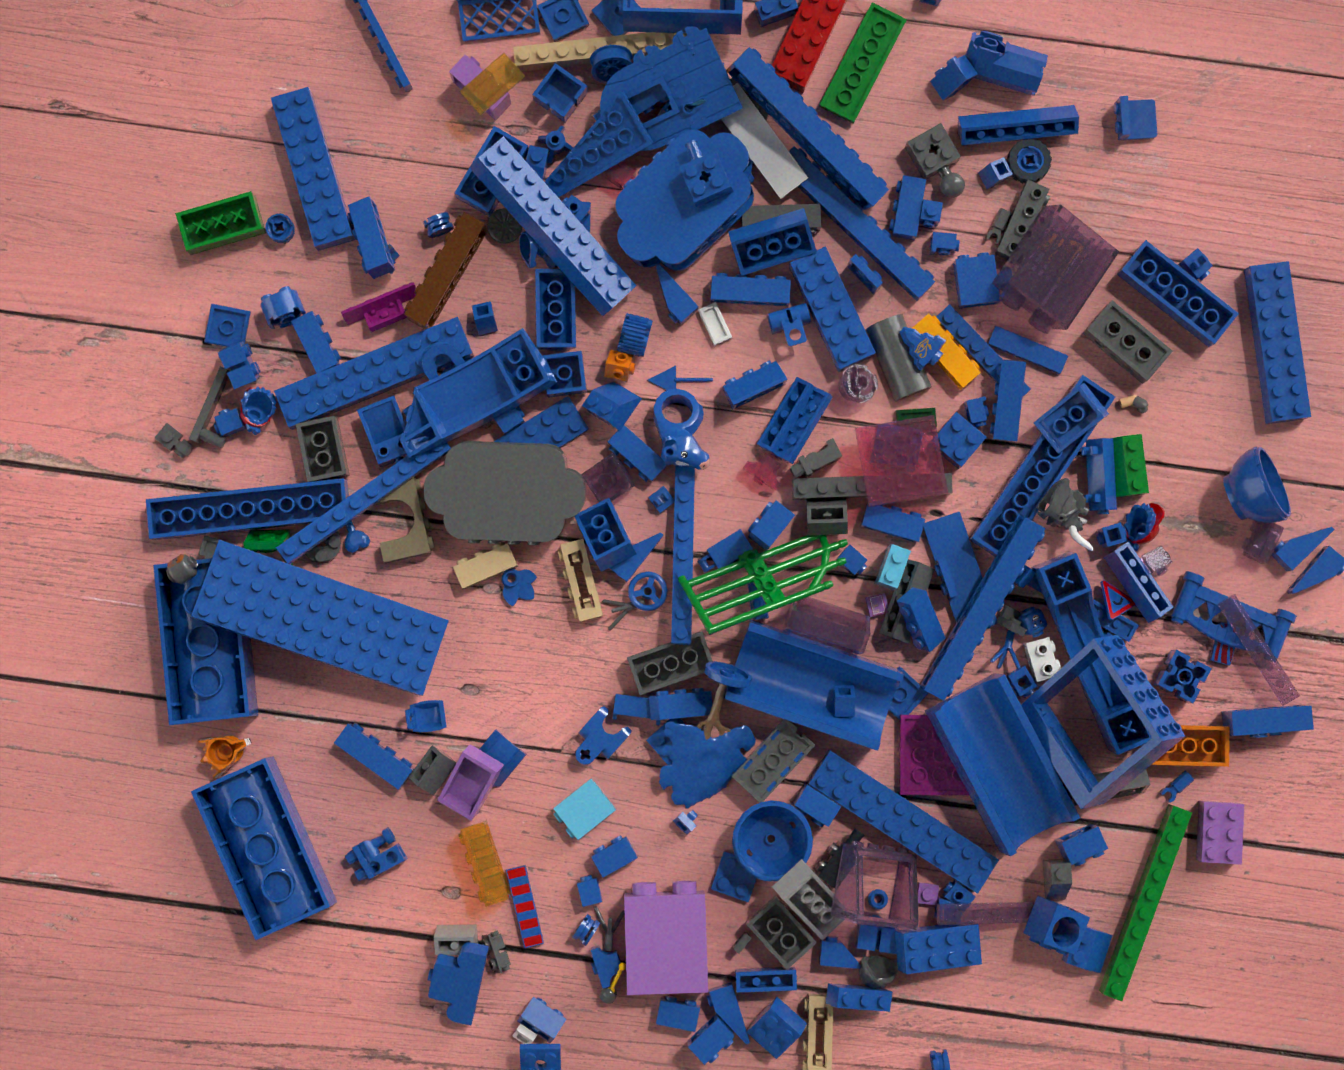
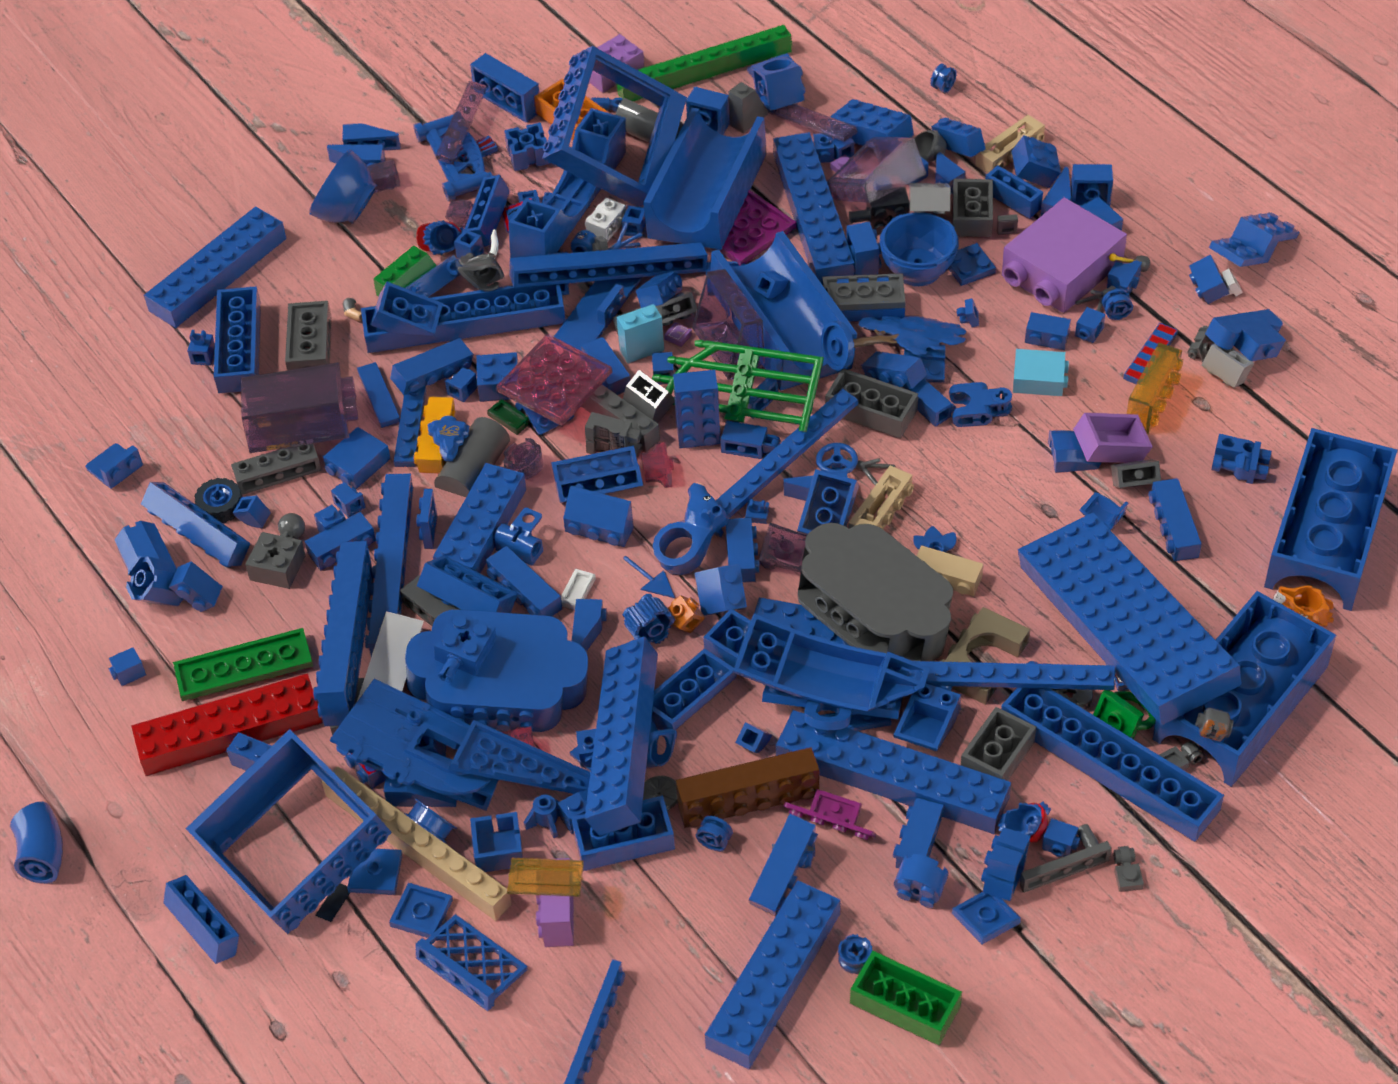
camera: 130 degrees left, 35 degrees down
(999, 224) = (294, 480): dark grey bar -> none

